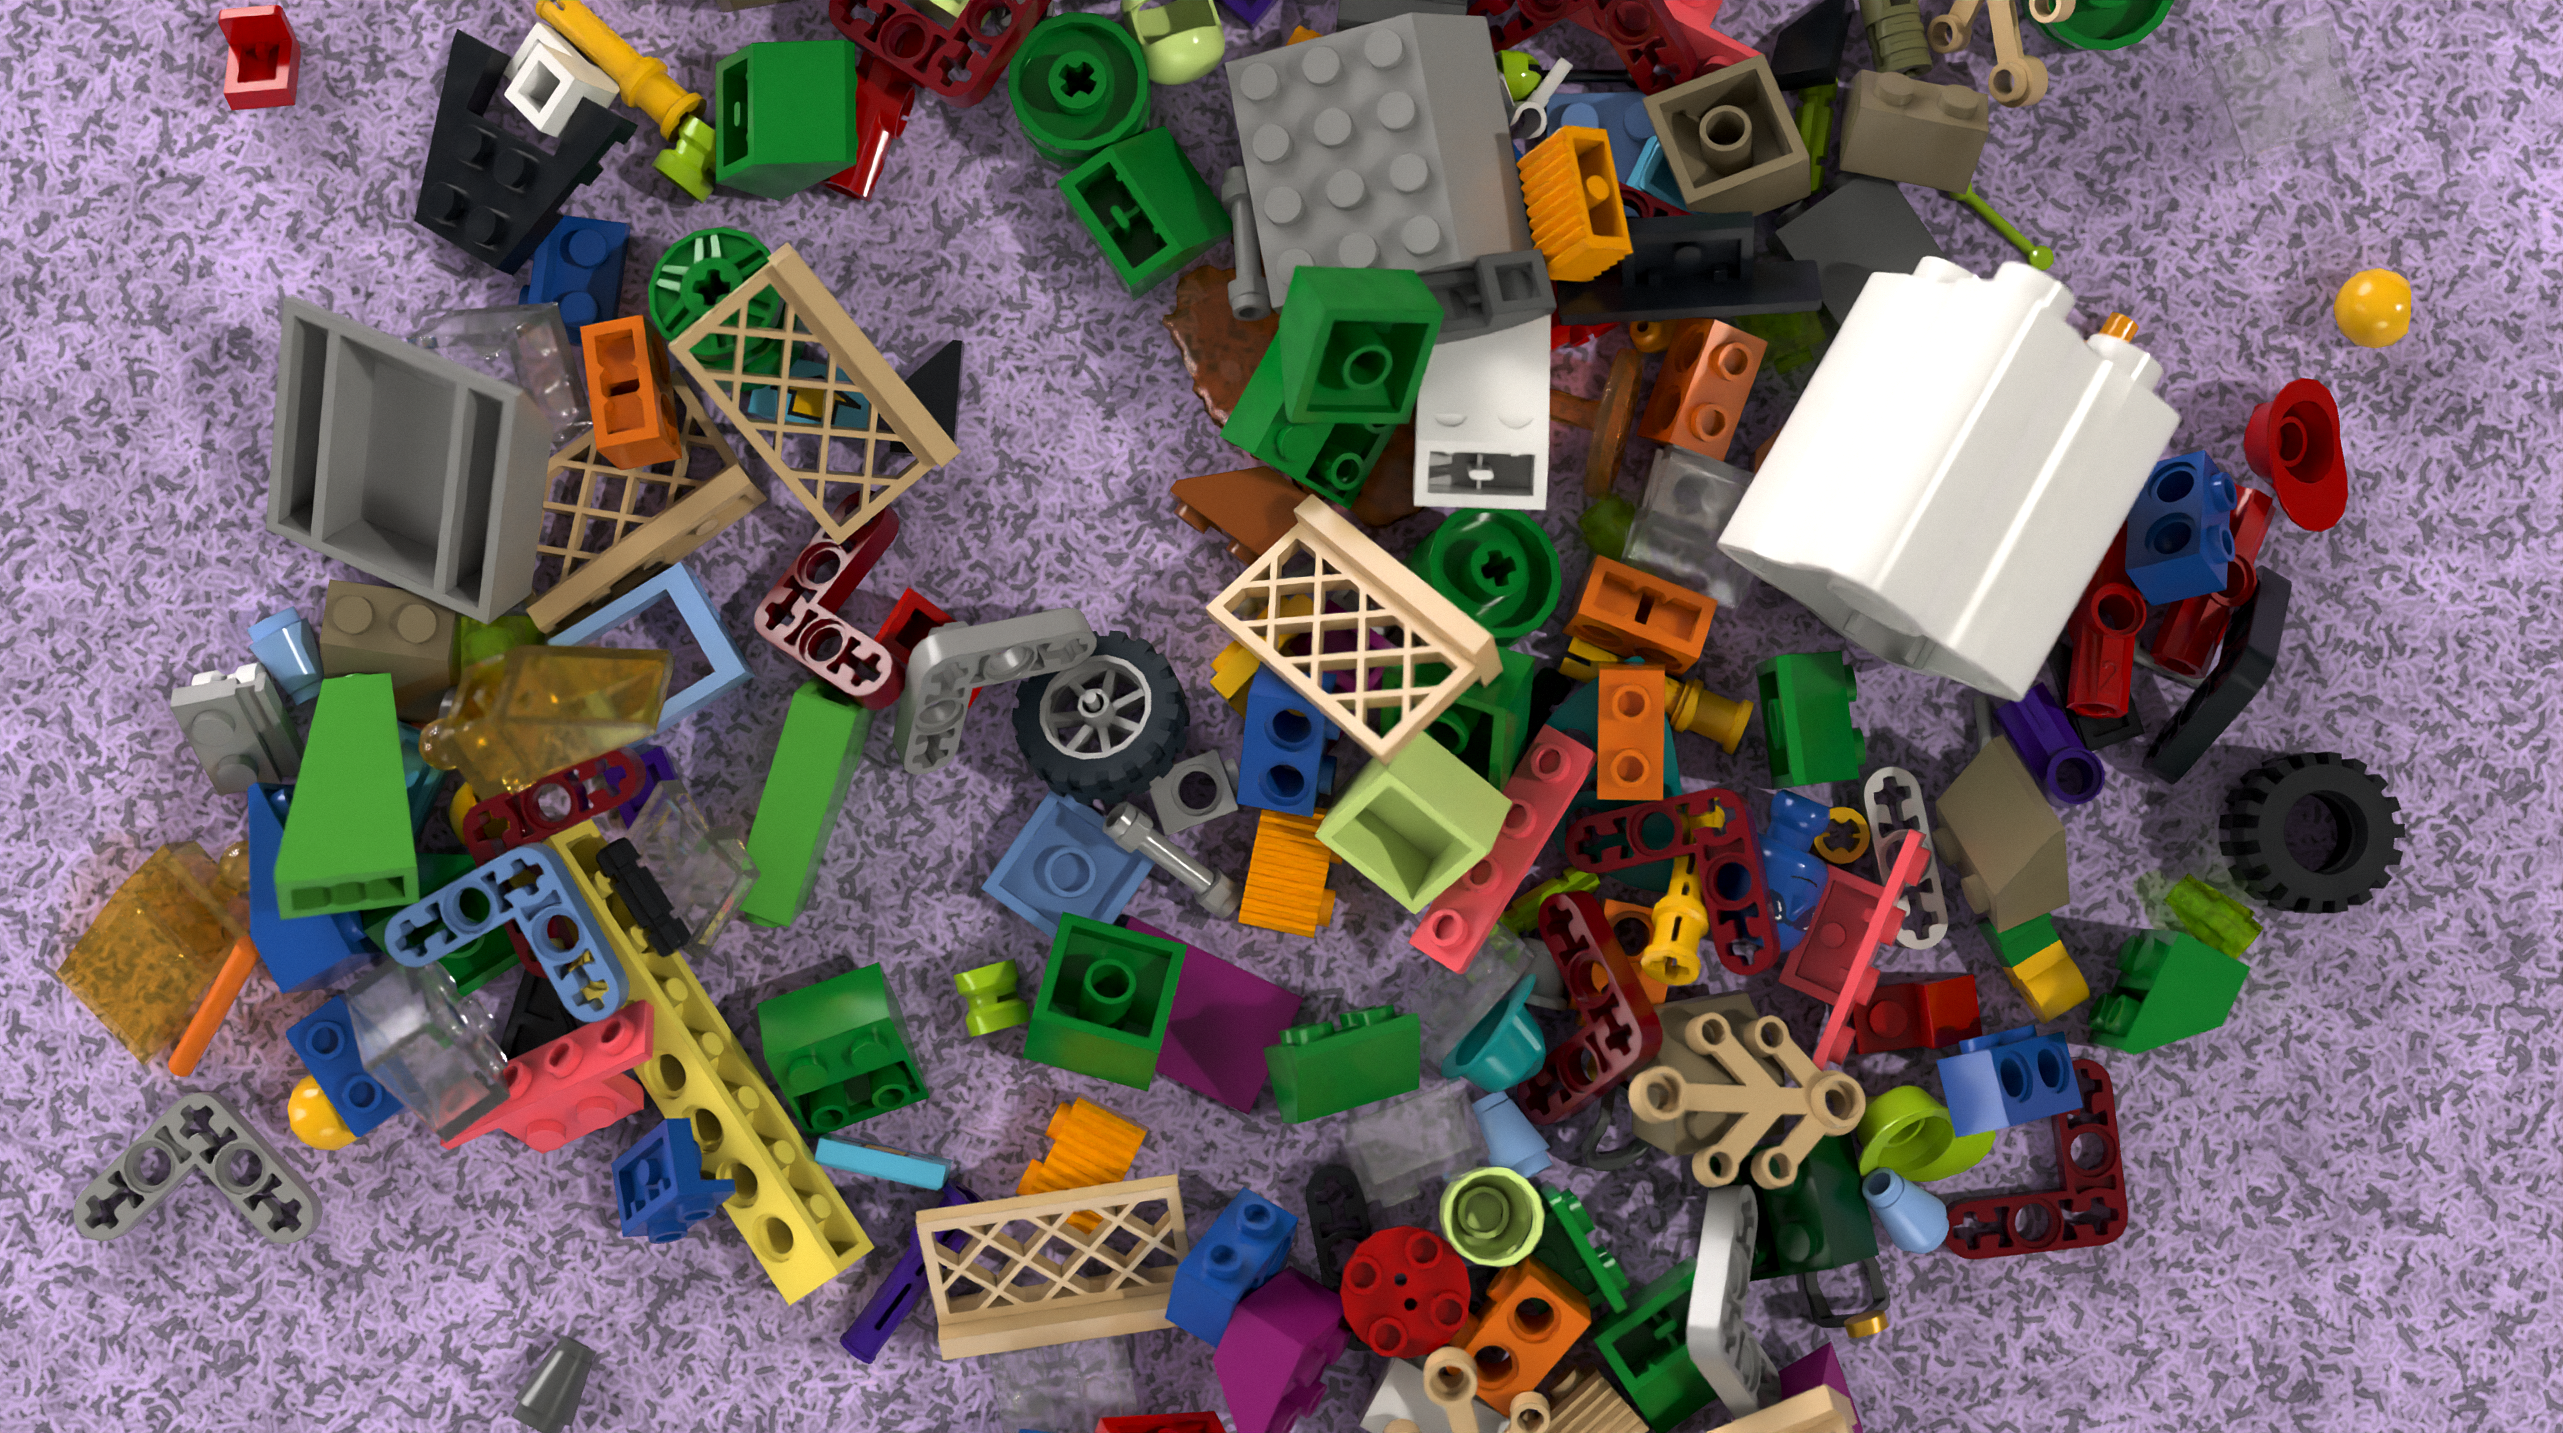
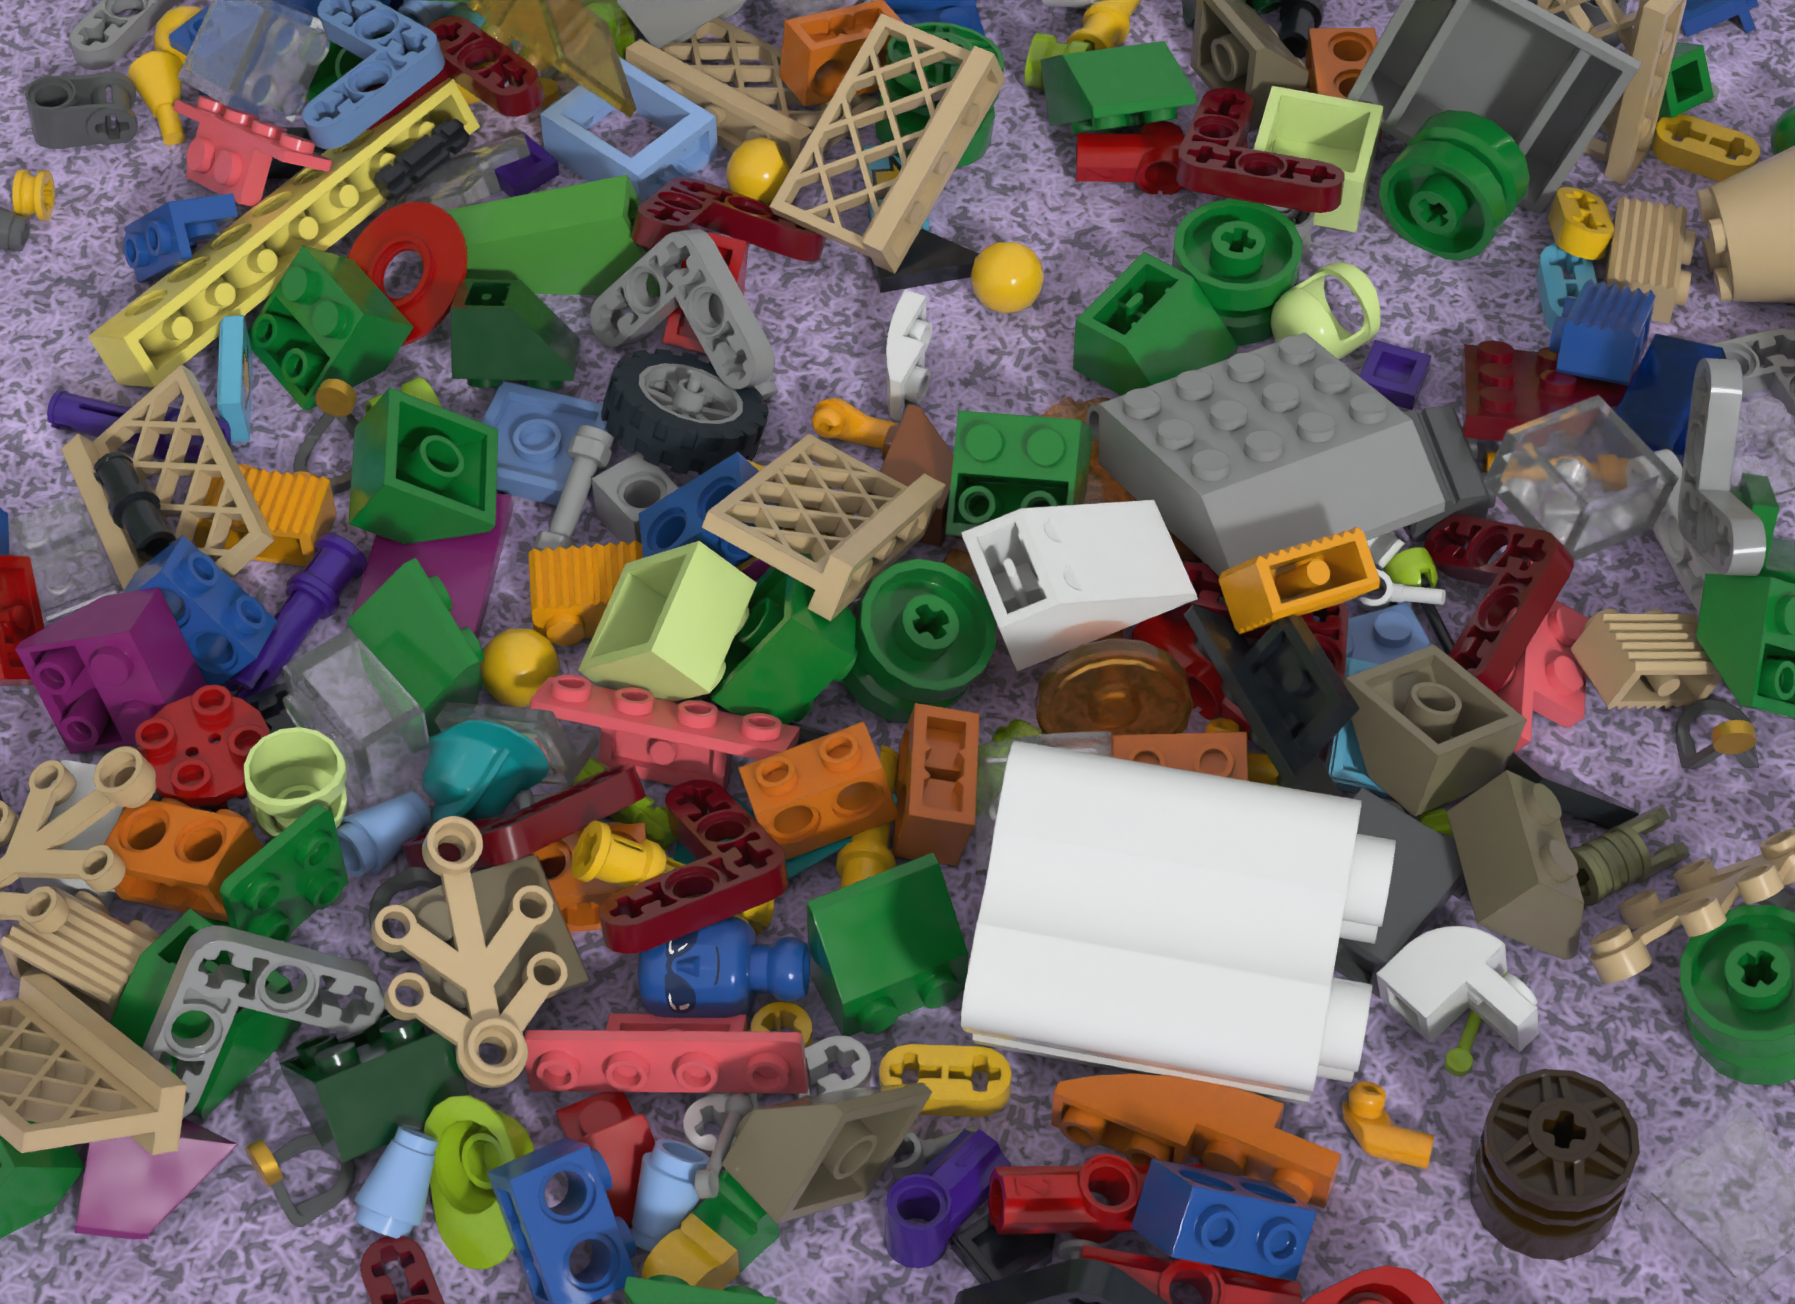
camera: 75 degrees right, 35 degrees down
(396, 1155) = (158, 85): none -> yellow cone
(408, 1242) = (76, 111): none -> dark grey piece
(527, 1325) = (33, 194): none -> yellow bush
(764, 536) = (757, 169): none -> yellow piece
(767, 920) = (442, 250): none -> red piece
(941, 864) = (509, 335): none -> dark green slope
(974, 1061) = (336, 401): none -> piece
(1004, 327) = (1007, 277): none -> yellow piece
(1072, 1303) = (133, 505): none -> black pin
(1093, 475) = (905, 354): none -> white slope
(1146, 541) = (844, 422): none -> light orange arm
(1204, 1145) = (311, 597): none -> dark purple pin
(1355, 344) = (1085, 431): green slope -> none
(1357, 963) = (517, 665): none -> yellow piece
(1493, 295) = (1172, 531): dark grey slope -> none
(1922, 899) = (707, 1179): none -> light grey hinge
(1940, 723) = (948, 1074): none -> yellow beam
(1981, 226) = (1453, 971): none -> white brick
(1986, 980) = (665, 1190): none -> light blue cone
(2165, 237) = (1553, 1164): none -> dark brown wheel

